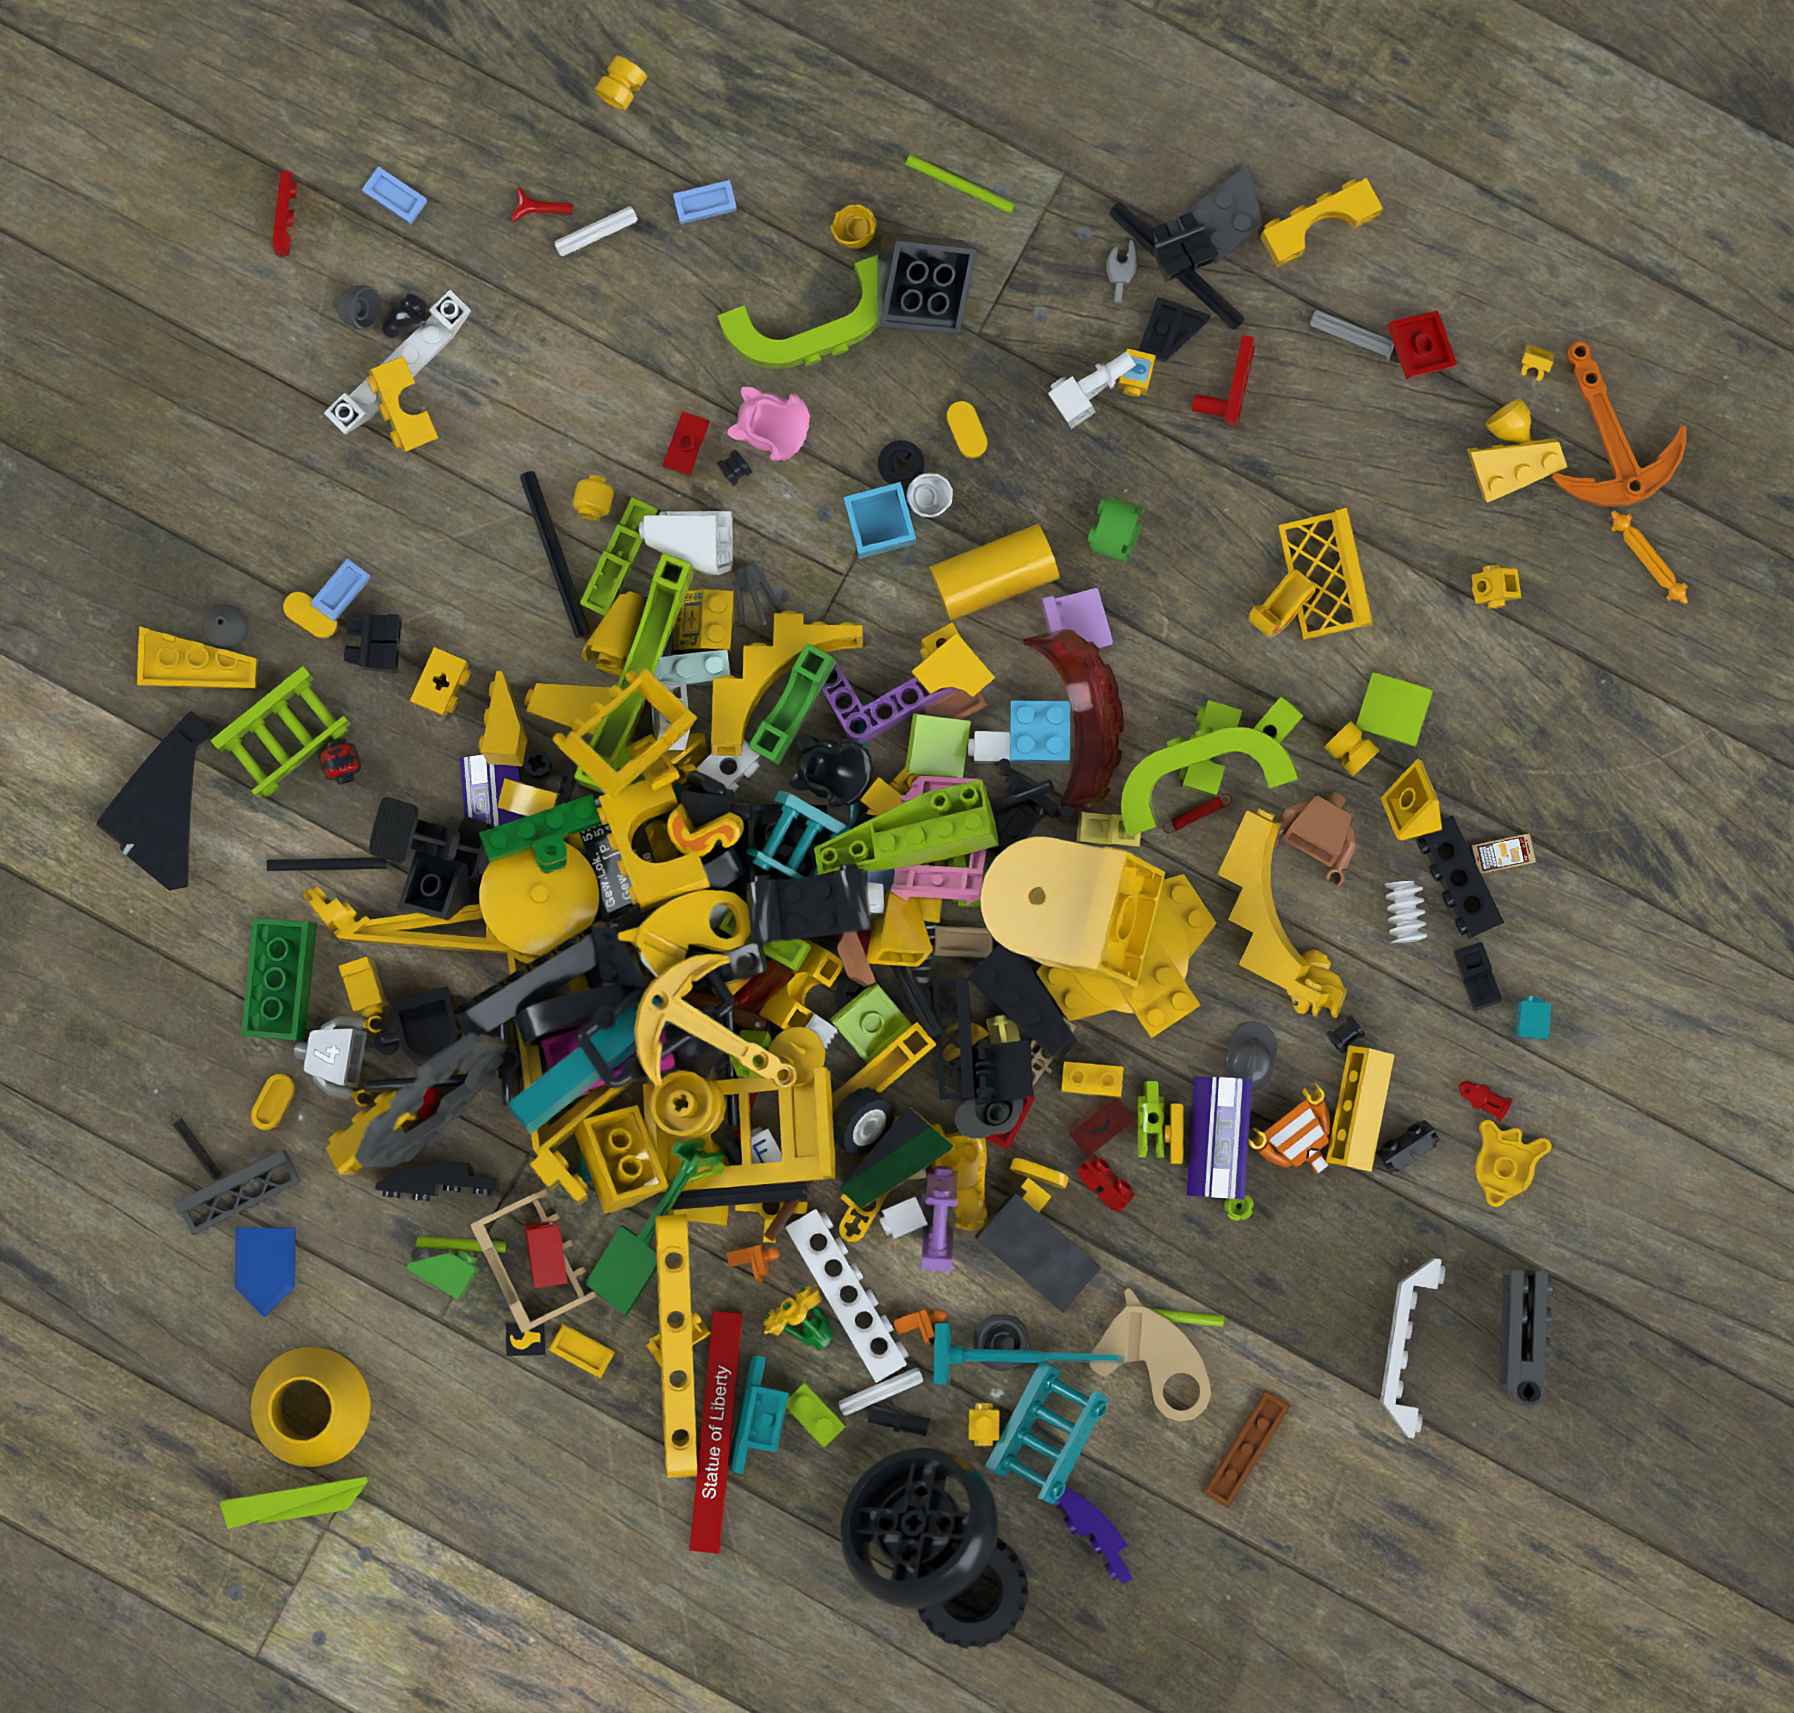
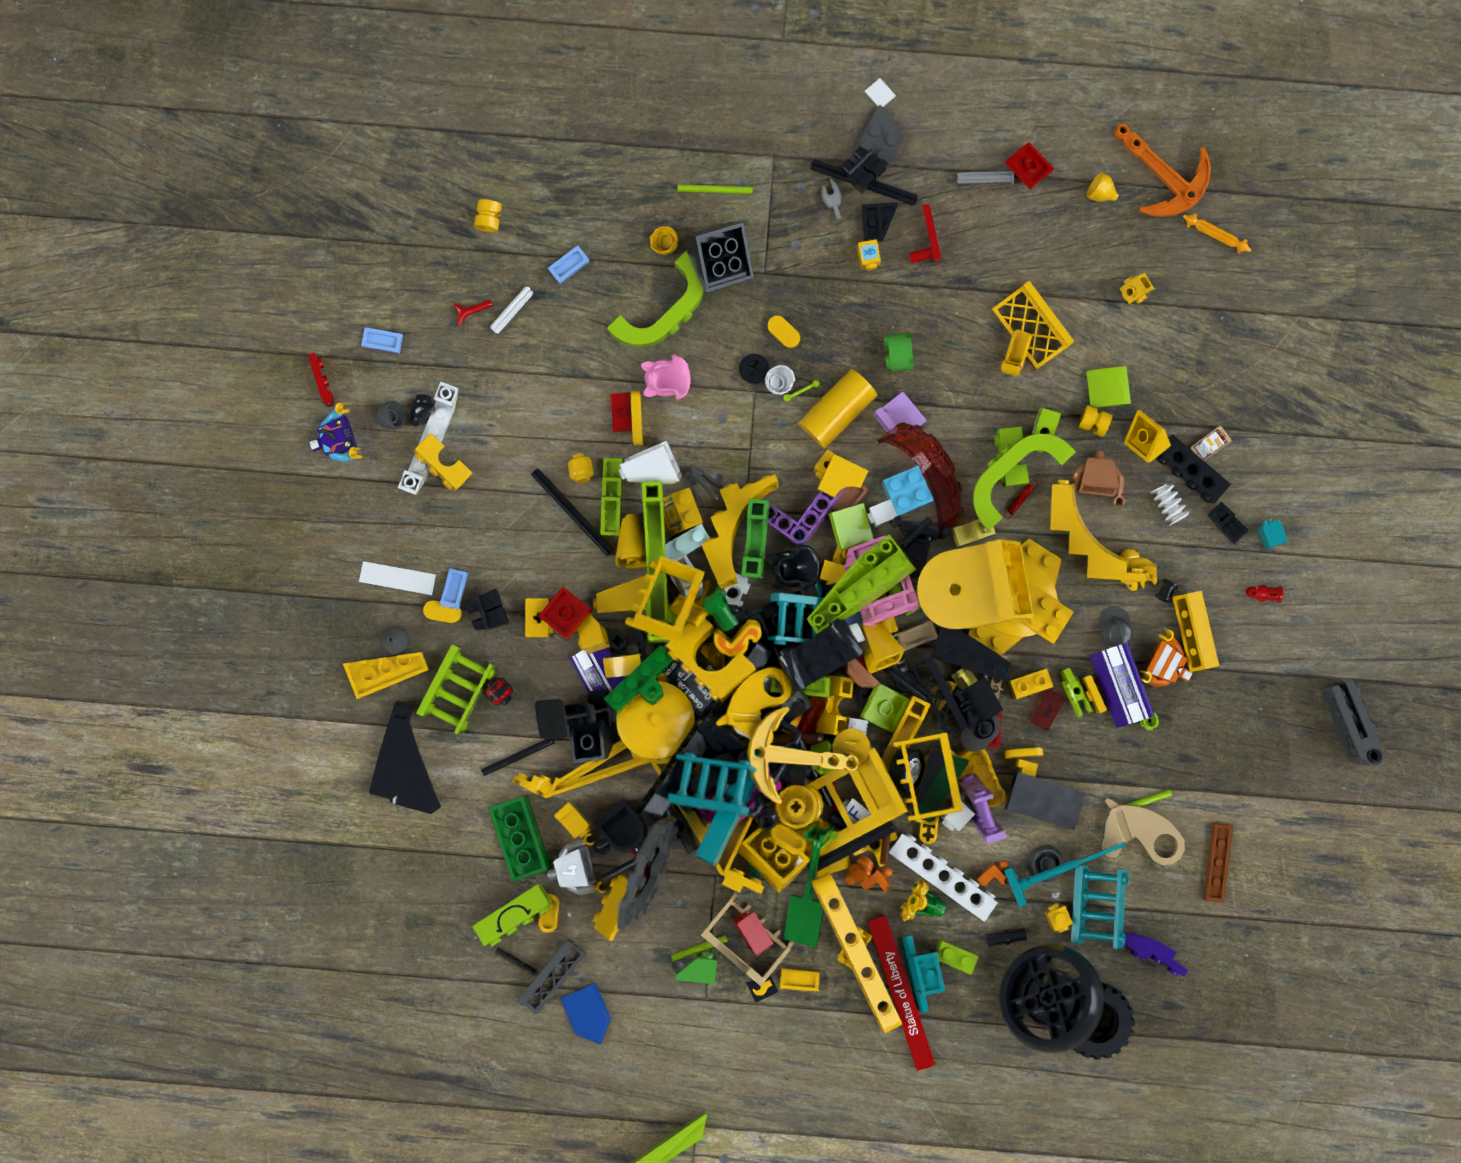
camera: 25 degrees left, 0 degrees up
(221, 1081) = (512, 915): none -> lime brick
(268, 540) = (397, 578): none -> white sticker
(271, 304) = (337, 436): none -> torso
(348, 1399) = (652, 1061): yellow cone -> none
(425, 1181) = (660, 919): black slope -> none
(479, 691) = (565, 613): none -> red plate
(570, 1044) = (718, 803): none -> teal fence
(639, 1095) = (771, 814): none -> black plate
(650, 1143) = (788, 839): none -> yellow tile
(694, 773) = (717, 605): none -> green piece
(704, 461) = (636, 418): none -> yellow beam
(732, 1235) = (859, 871): none -> orange animal
(734, 467) = (656, 414): black wheel -> none
(879, 520) = (757, 407): medium azure piece -> none
(880, 1391) = (987, 926): white axle -> none
(925, 1119) = (955, 795): none -> yellow hinge
(930, 525) = (787, 397): none -> lime hinge
(1073, 397) = (840, 286): white brick -> none
(1097, 1172) = (1074, 743): red hinge -> none
(1257, 148) = (880, 93): none -> white sticker
(1353, 204) = (951, 102): yellow arch -> none
(1406, 1416) = (1279, 712): white slope -> none
(1419, 1137) = (1236, 634): black hinge -> none
(1505, 1163) = (1293, 626): yellow tile -> none
(1515, 466) = (1113, 215): yellow wing -> none
(1537, 358) = (1100, 144): yellow tile -> none

